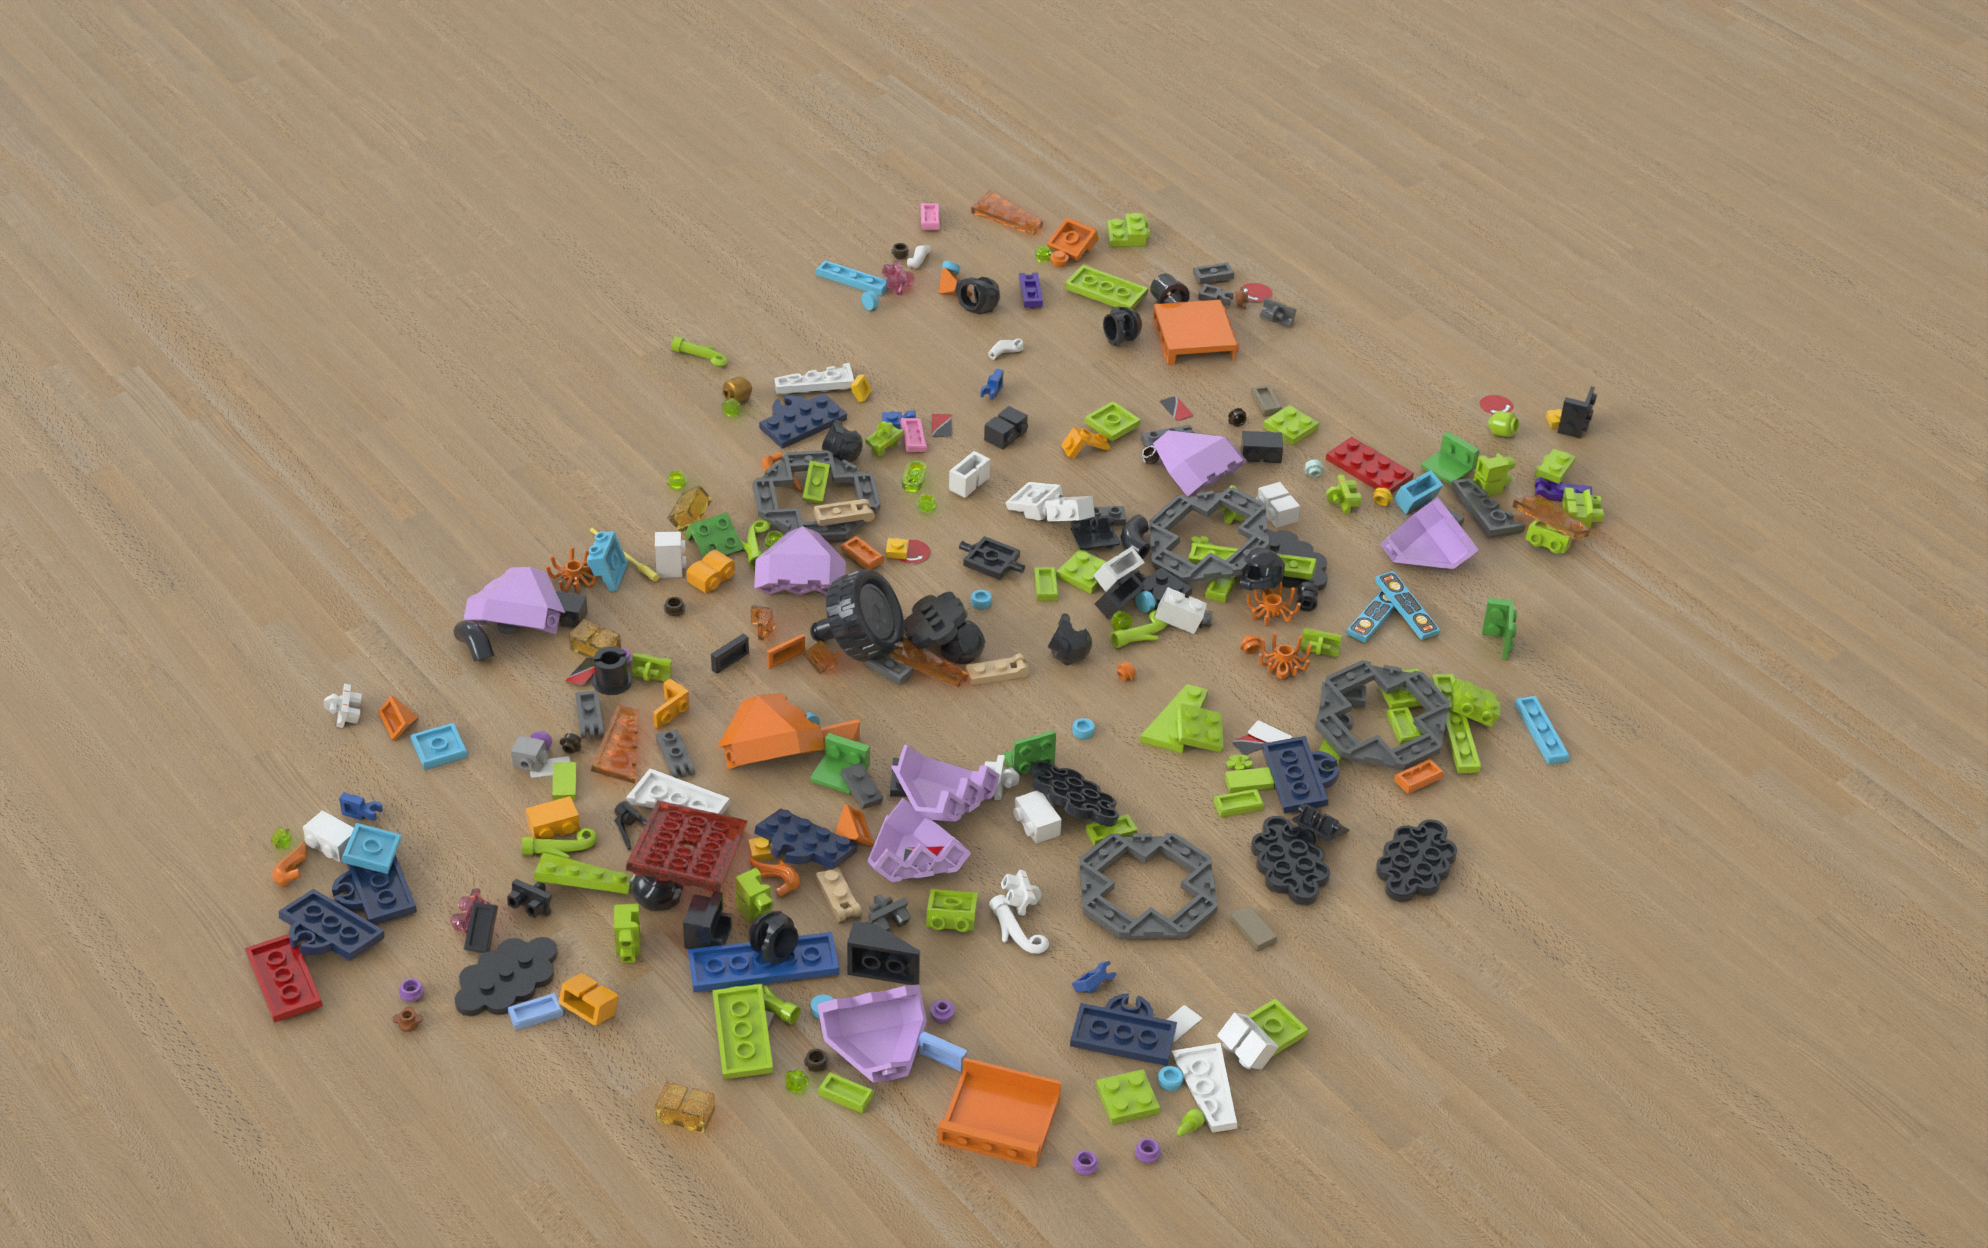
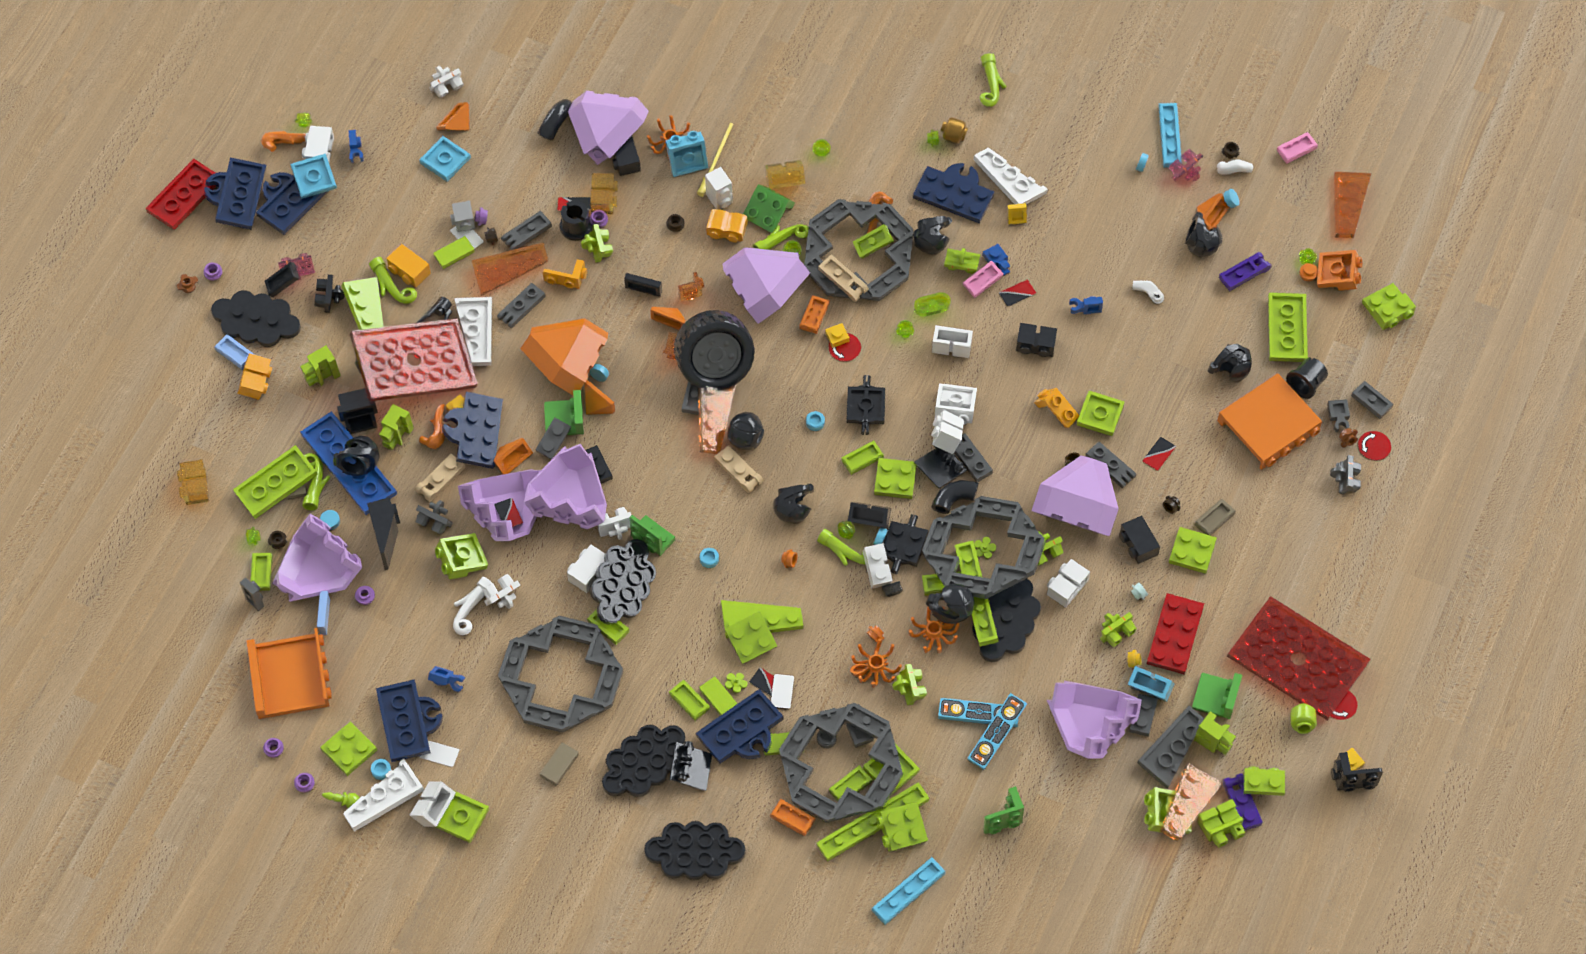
camera: 65 degrees right, 20 degrees up
(880, 1099) = (252, 593): none -> dark grey plate
(935, 620) = (751, 399): black plate -> none
(1117, 568) = (903, 502): white piece -> none
(1307, 596) = (961, 652): black wheel -> none
(1461, 391) = (1280, 632): none -> clear red plate

